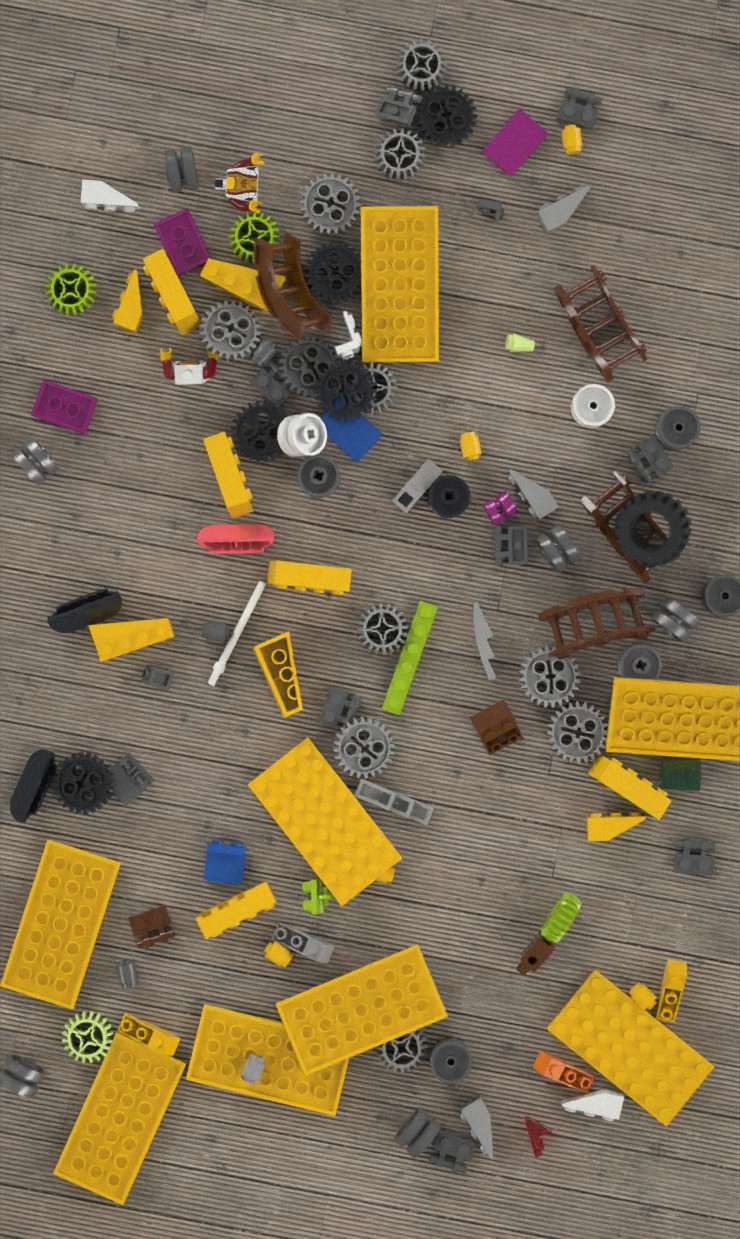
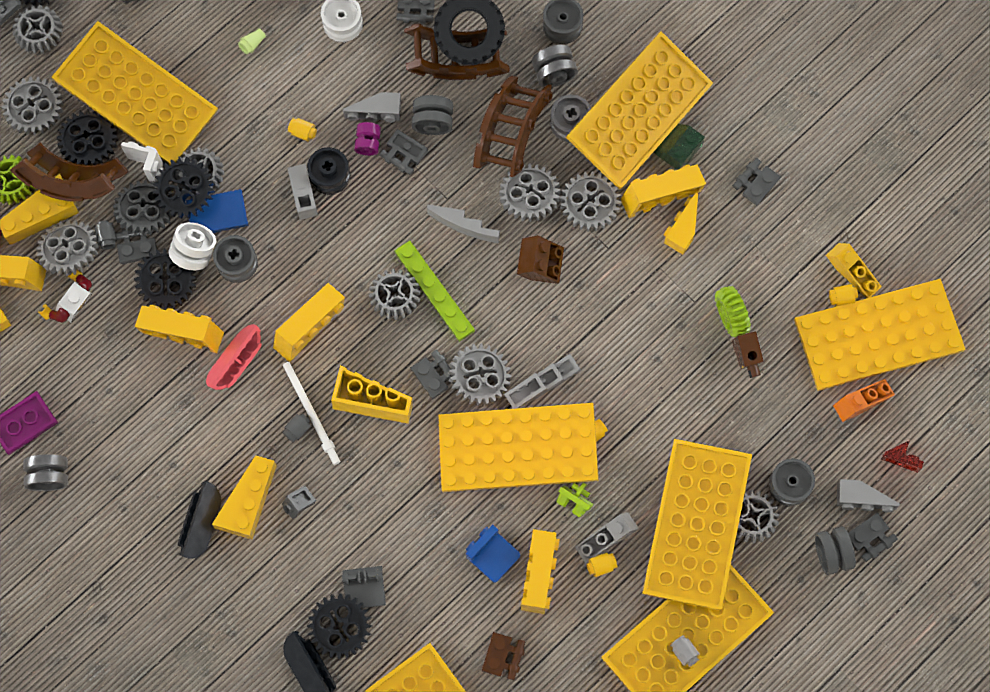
camera: 50 degrees left, 15 degrees down
(601, 1102) = (910, 386): white slope -> none

